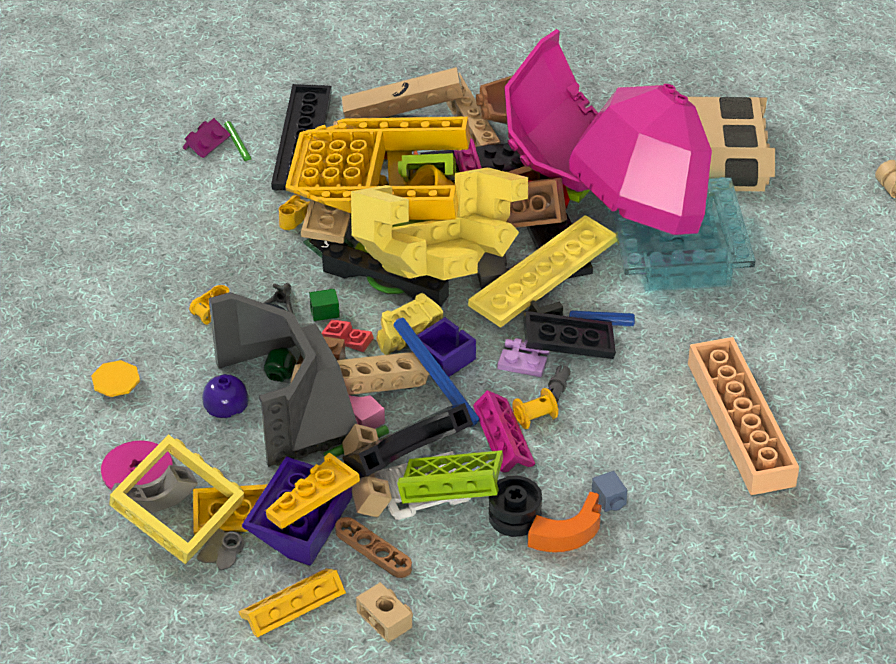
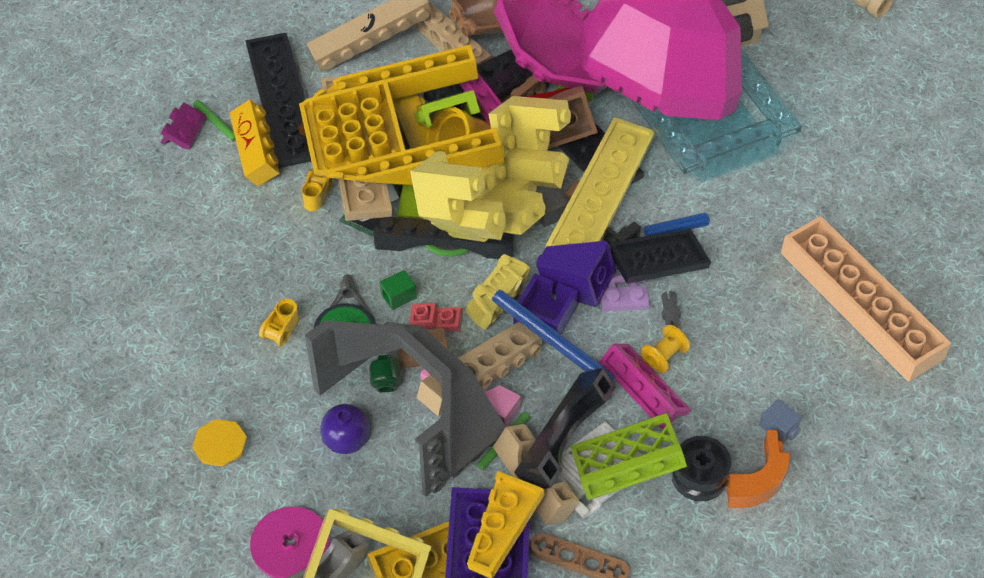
camera: 20 degrees left, 10 degrees up
(258, 163) = (254, 142): none -> yellow brick
(489, 321) = (579, 266): none -> dark purple slope

